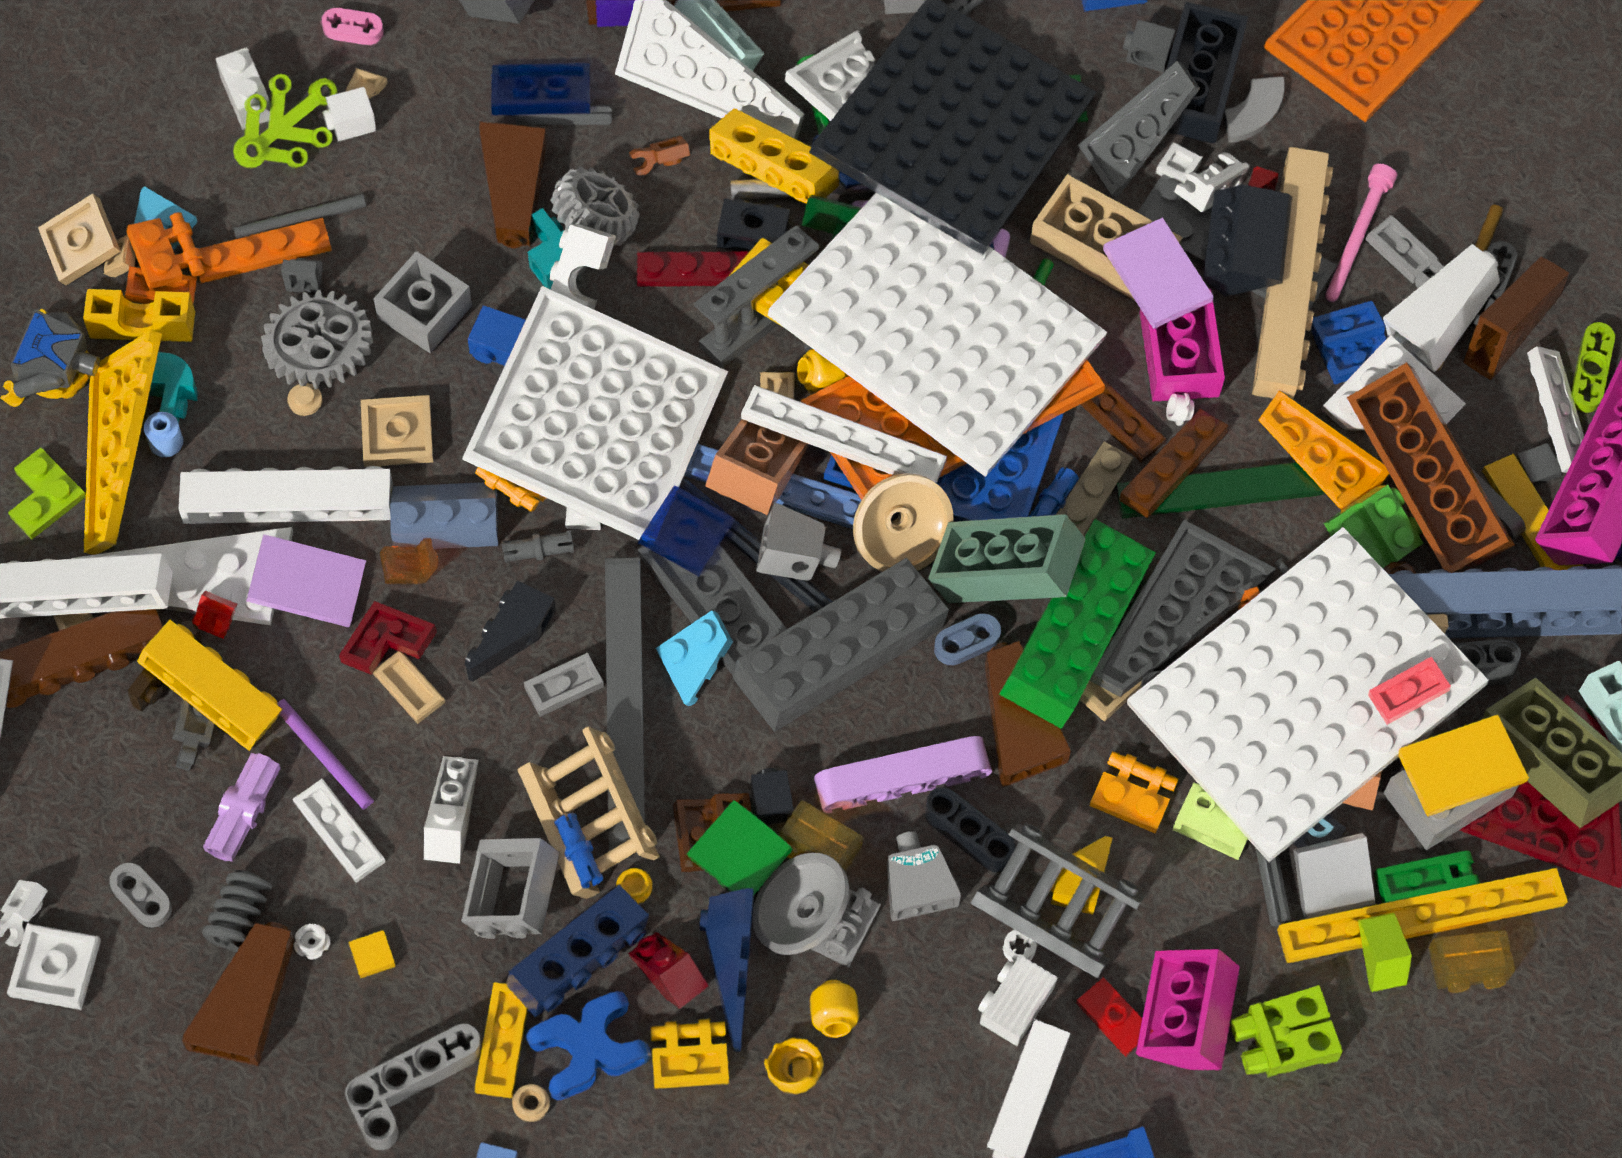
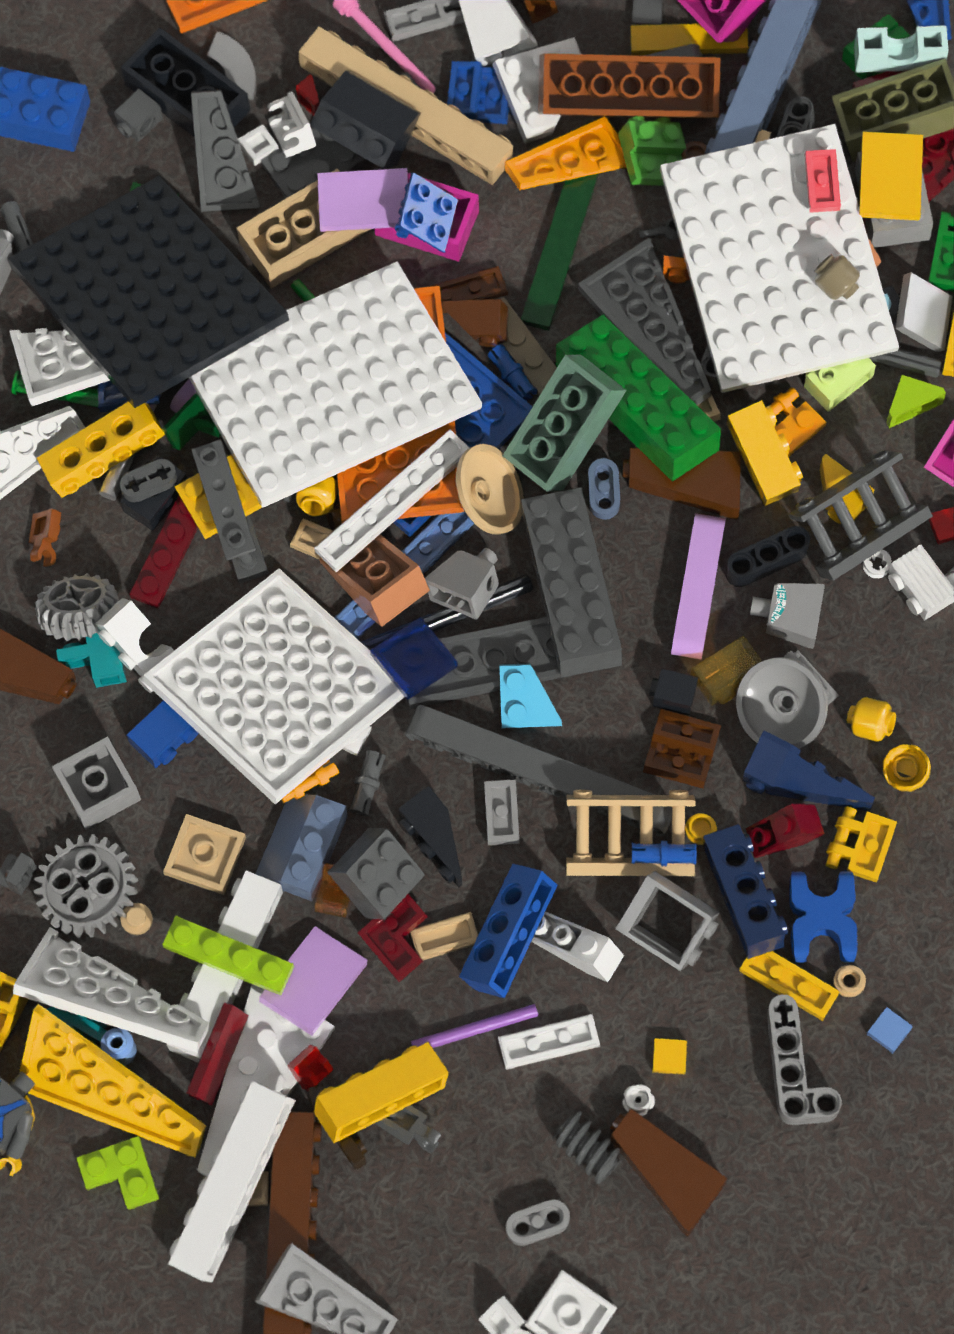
camera: 60 degrees left, 5 degrees up
(191, 524) = (217, 1054): none -> dark red tile
(206, 389) = (96, 989): none -> white wing
(241, 807) = (496, 1110): lavender piece -> none
(292, 488) = (228, 955): none -> lime plate
(435, 739) = (508, 930): none -> blue brick
(436, 586) = (376, 873): none -> dark grey brick
(739, 850) = (714, 733): green slope -> none
(758, 208) = (148, 480): none -> dark grey beam
(1076, 771) = (764, 452): none -> yellow brick
(1088, 441) = (481, 319): none -> reddish brown slope
(1170, 332) = (426, 213): none -> hinge
(1173, 463) = (524, 269): reddish brown plate -> none
(1179, 408) = (478, 243): white plate -> none
(1225, 905) = (913, 399): none -> lime slope
(1306, 752) = (837, 277): none -> dark tan head

